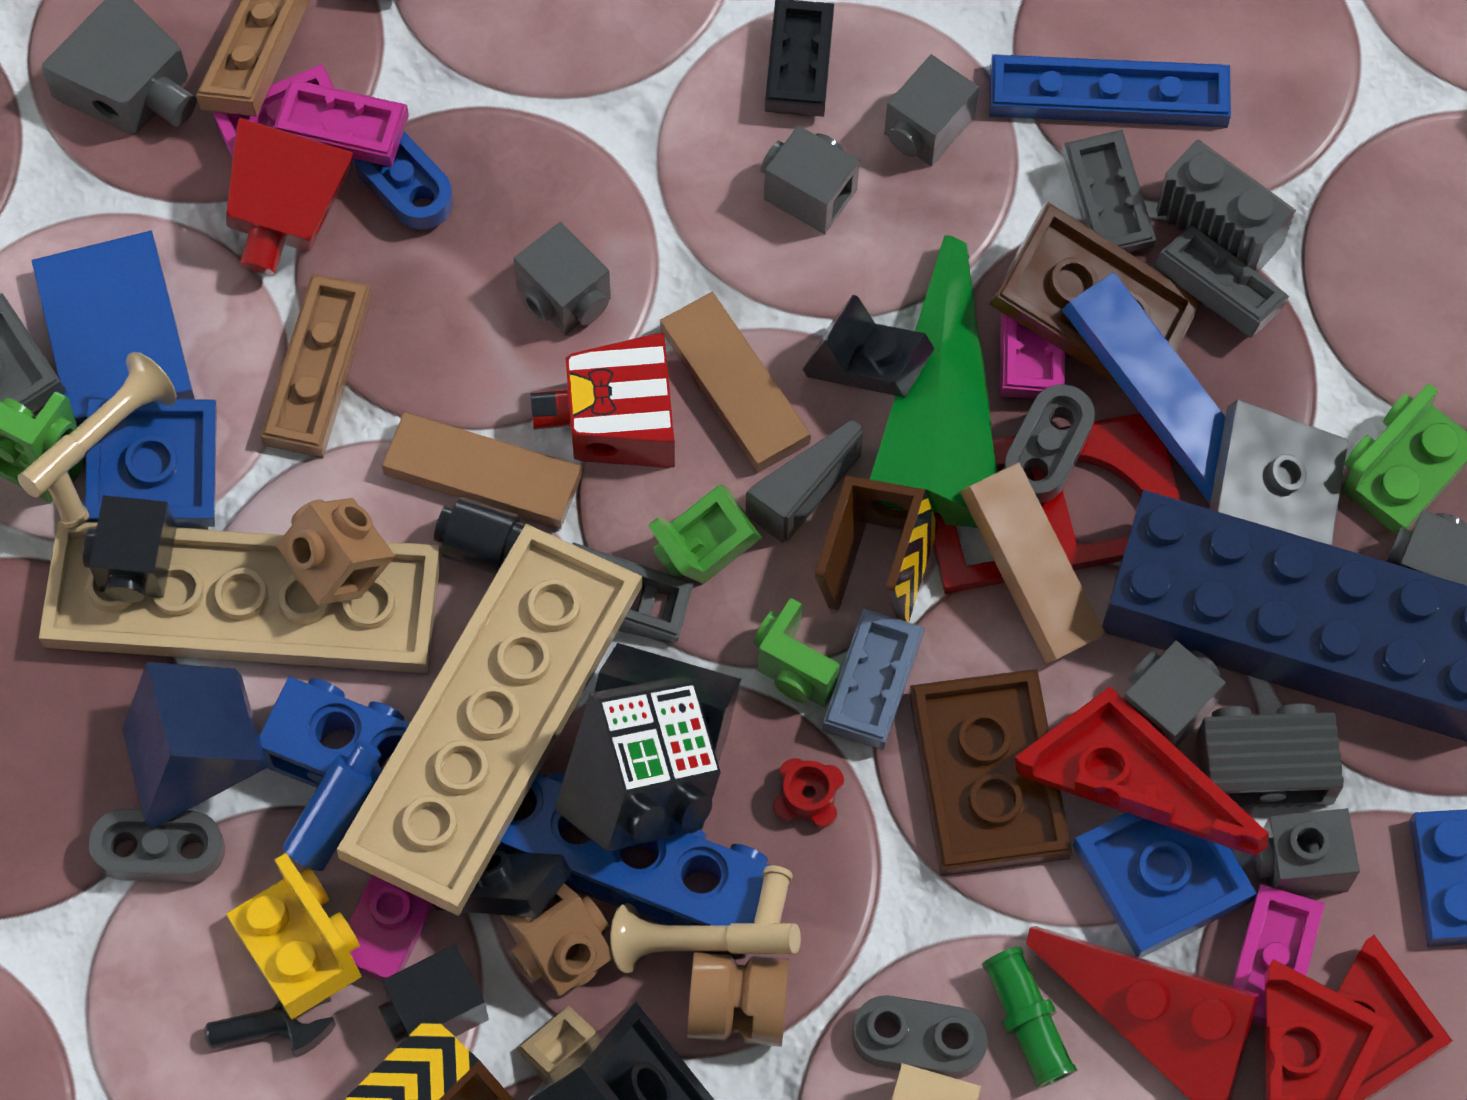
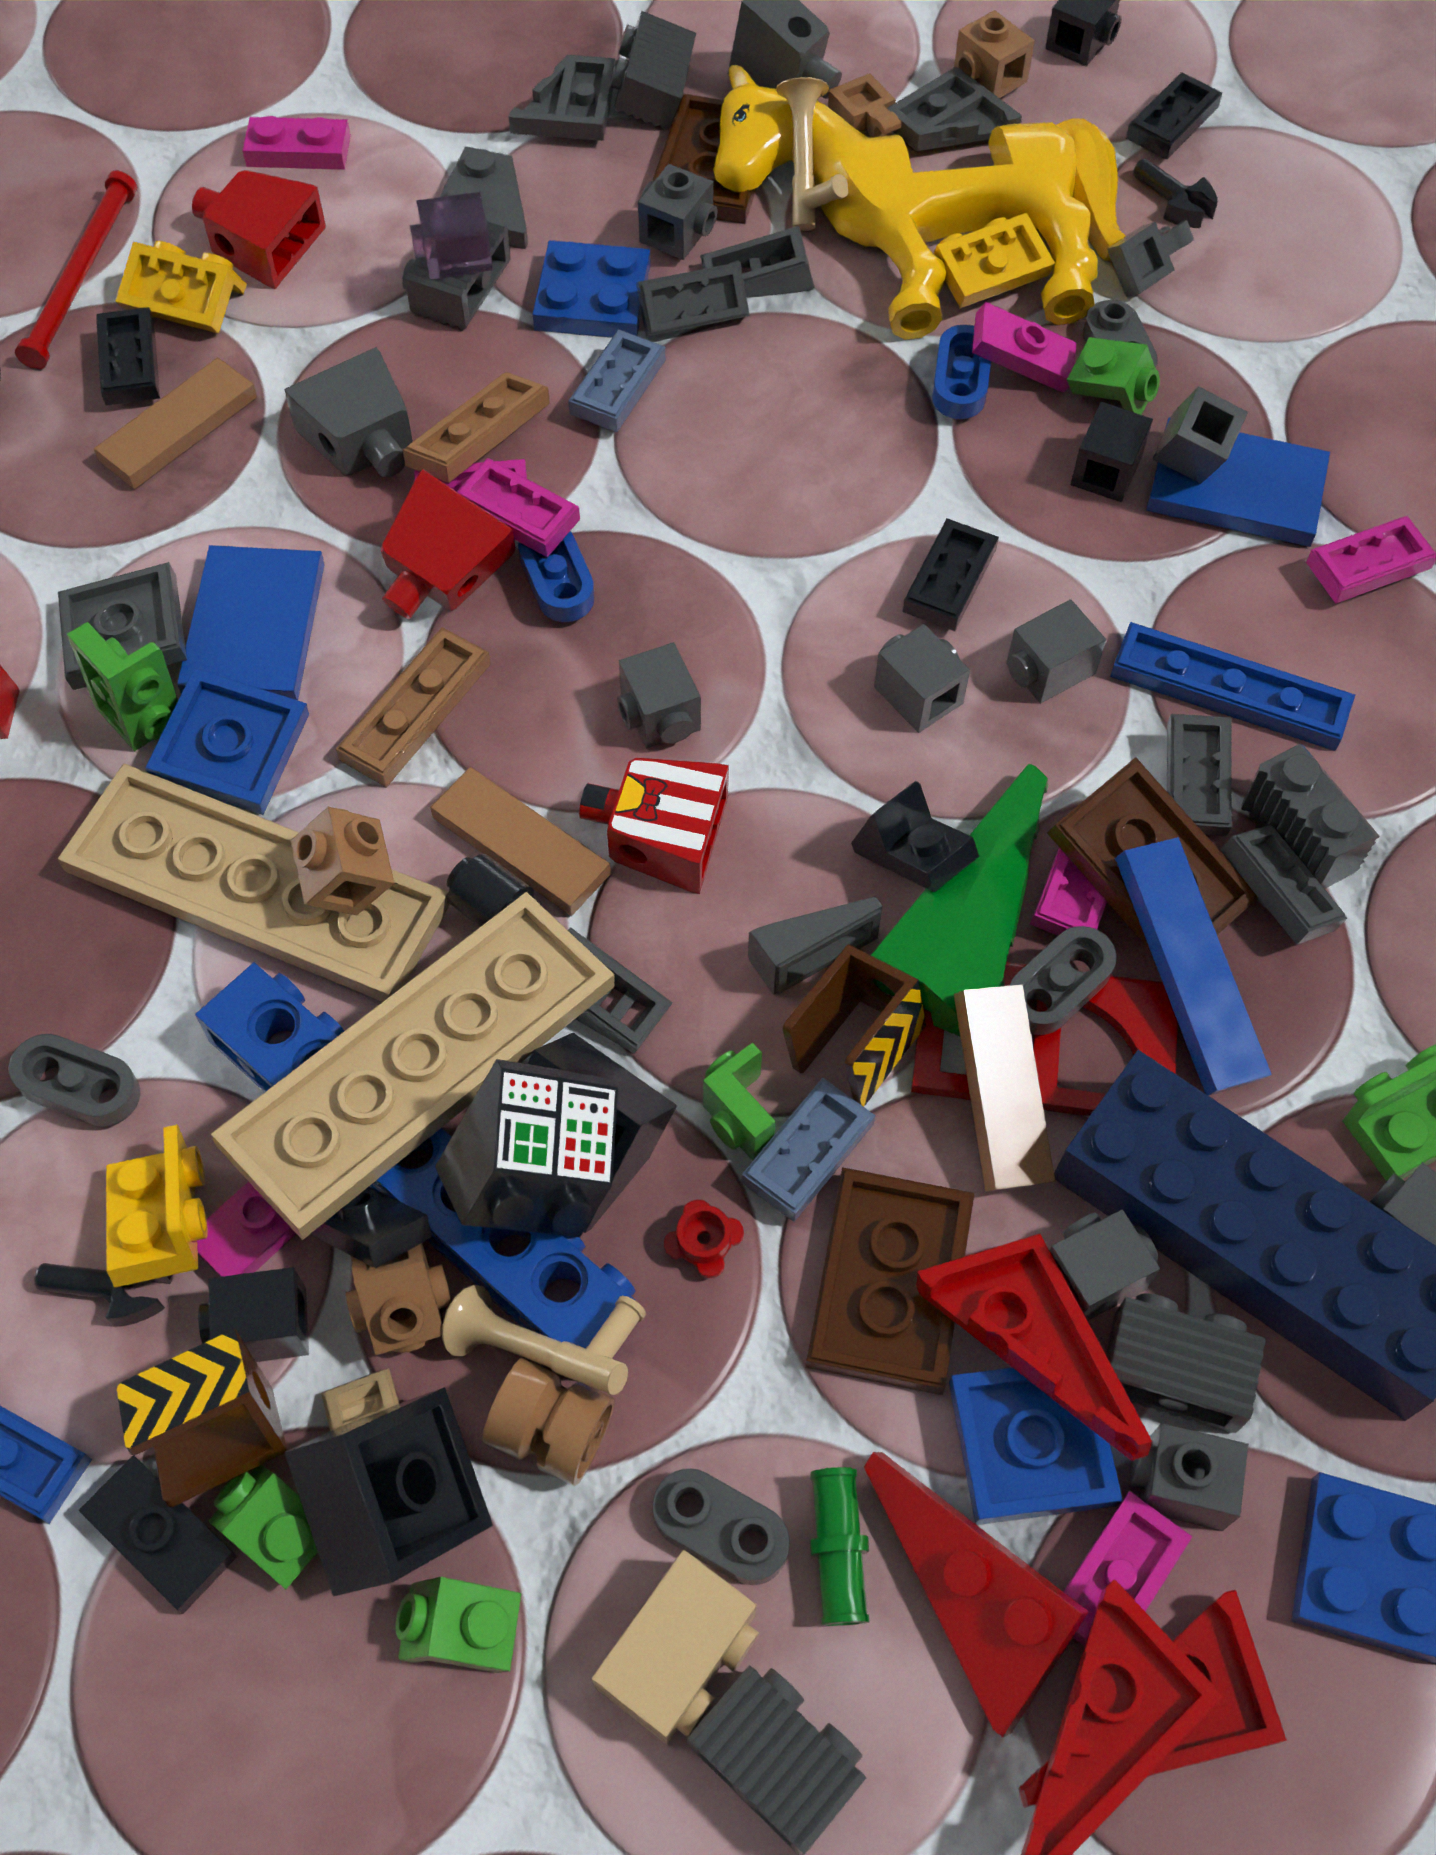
camera: 20 degrees right, 5 degrees down
(50, 471) = (122, 706): tan piece -> none
(131, 548) = (167, 803): black brick -> none
(189, 737) = (144, 988): dark blue slope -> none
(332, 807) = (233, 1092): blue cylinder -> none
(704, 536) = (697, 962): bright green bracket -> none
(735, 382) = (783, 834): medium nougat tile -> none
(1279, 472) = (1284, 1079): plate -> none

